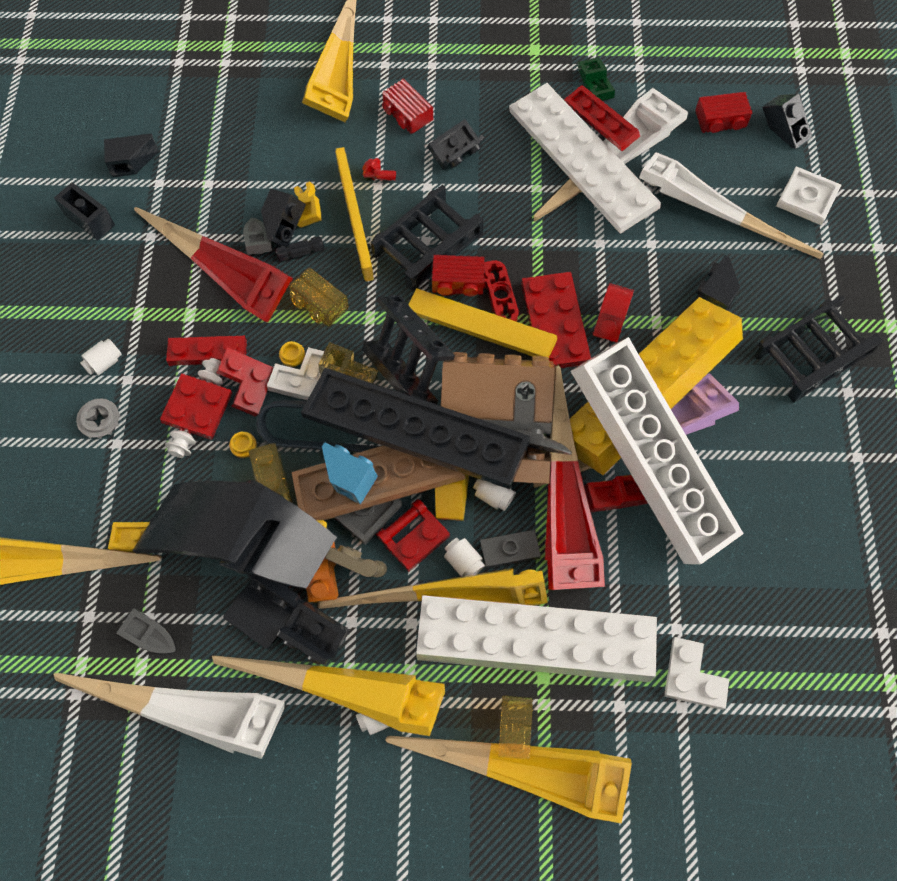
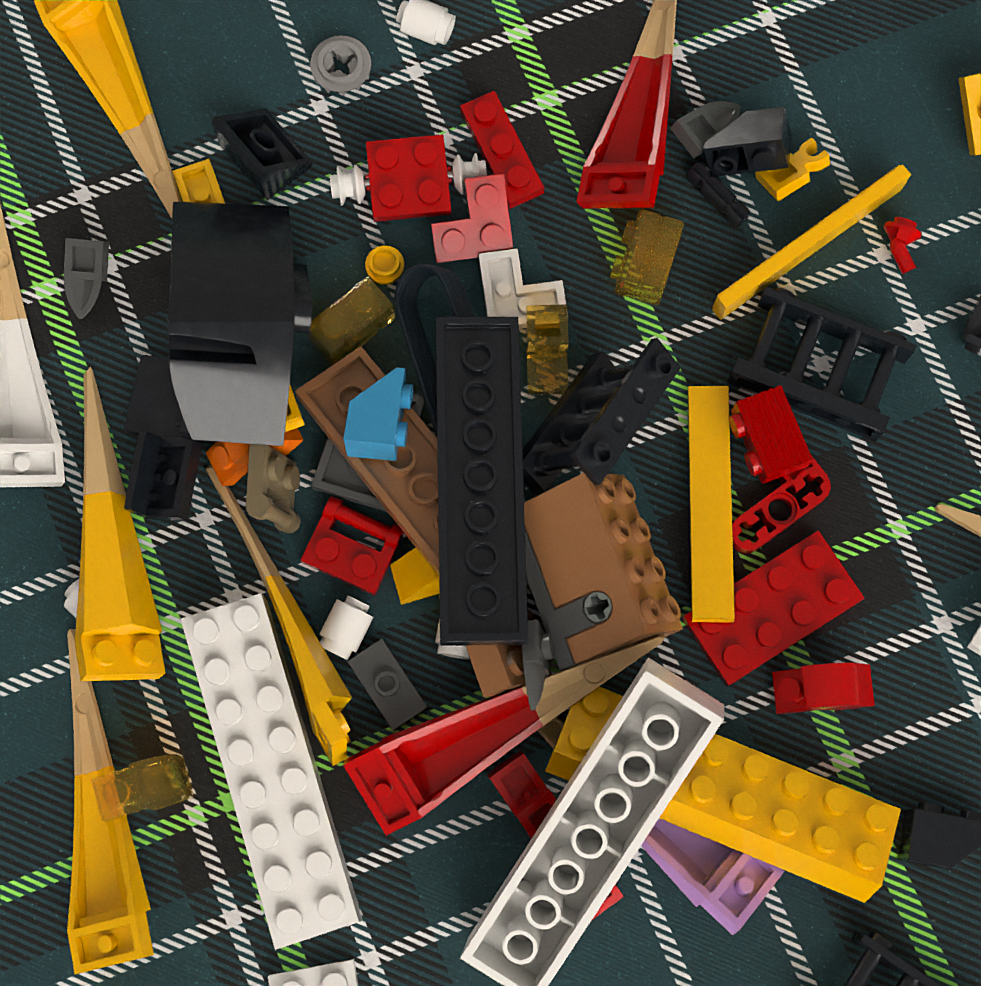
camera: 65 degrees right, 10 degrees up
(126, 489) = (261, 149): none -> black slope
(292, 354) = (546, 263): yellow plate -> none

